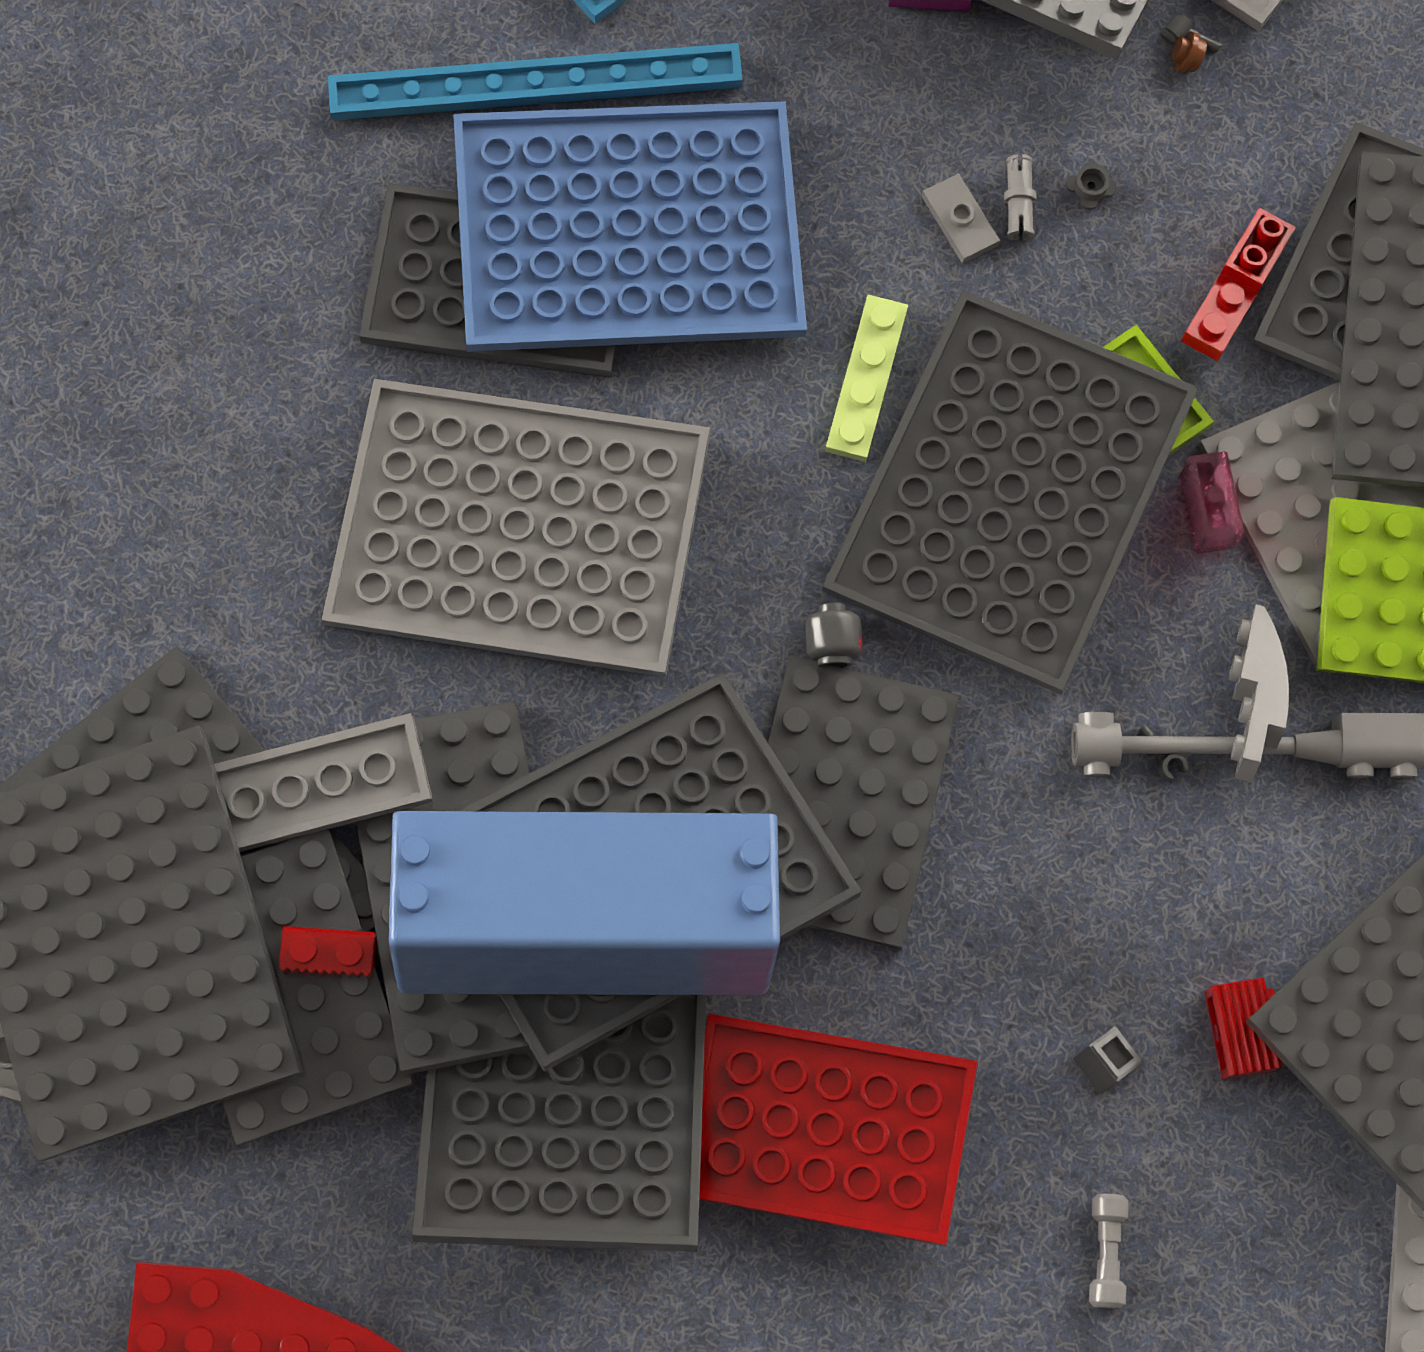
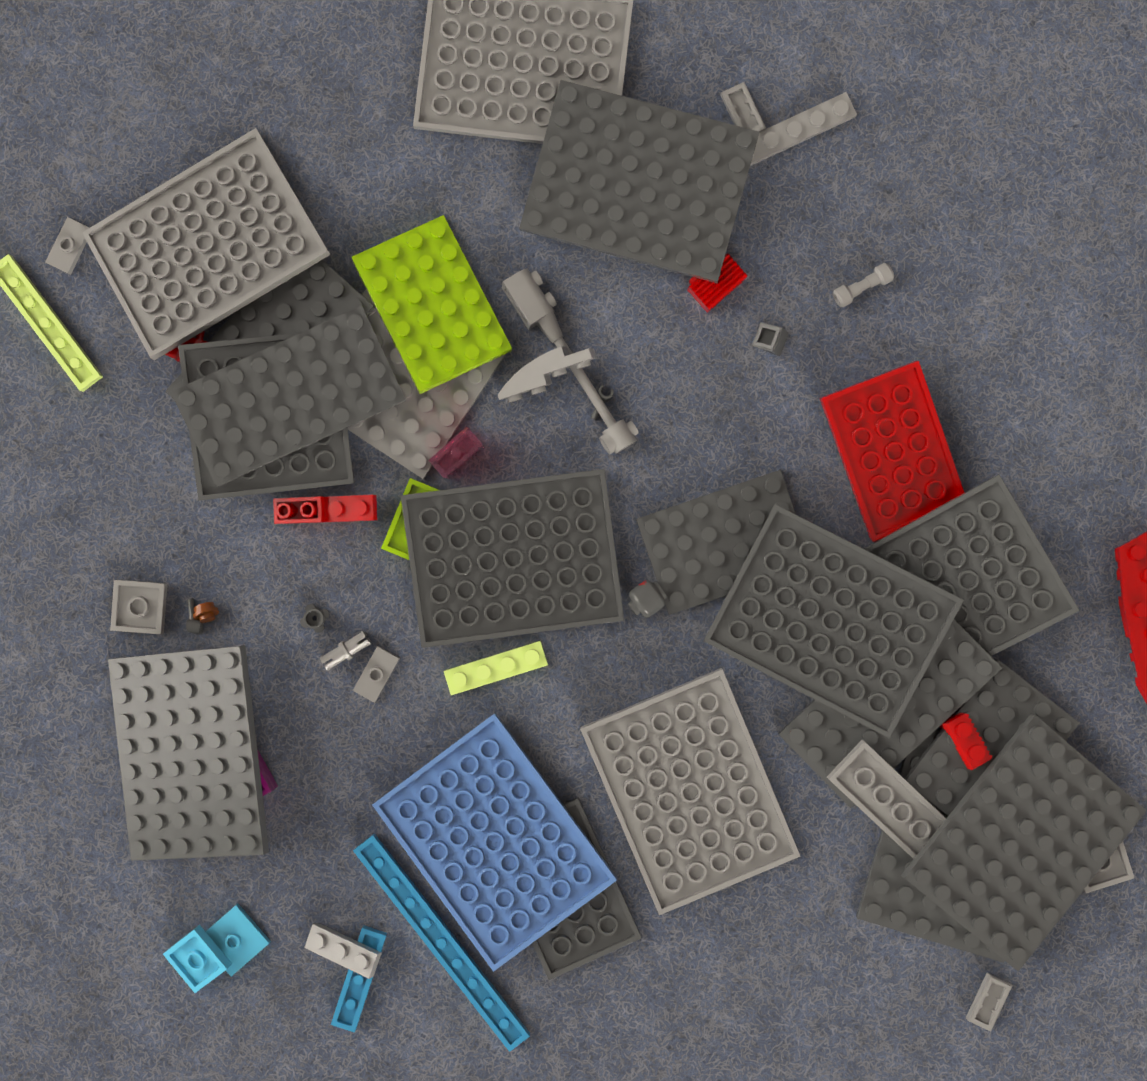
camera: 120 degrees left, 15 degrees up
(584, 903) = (890, 632): medium blue container -> none

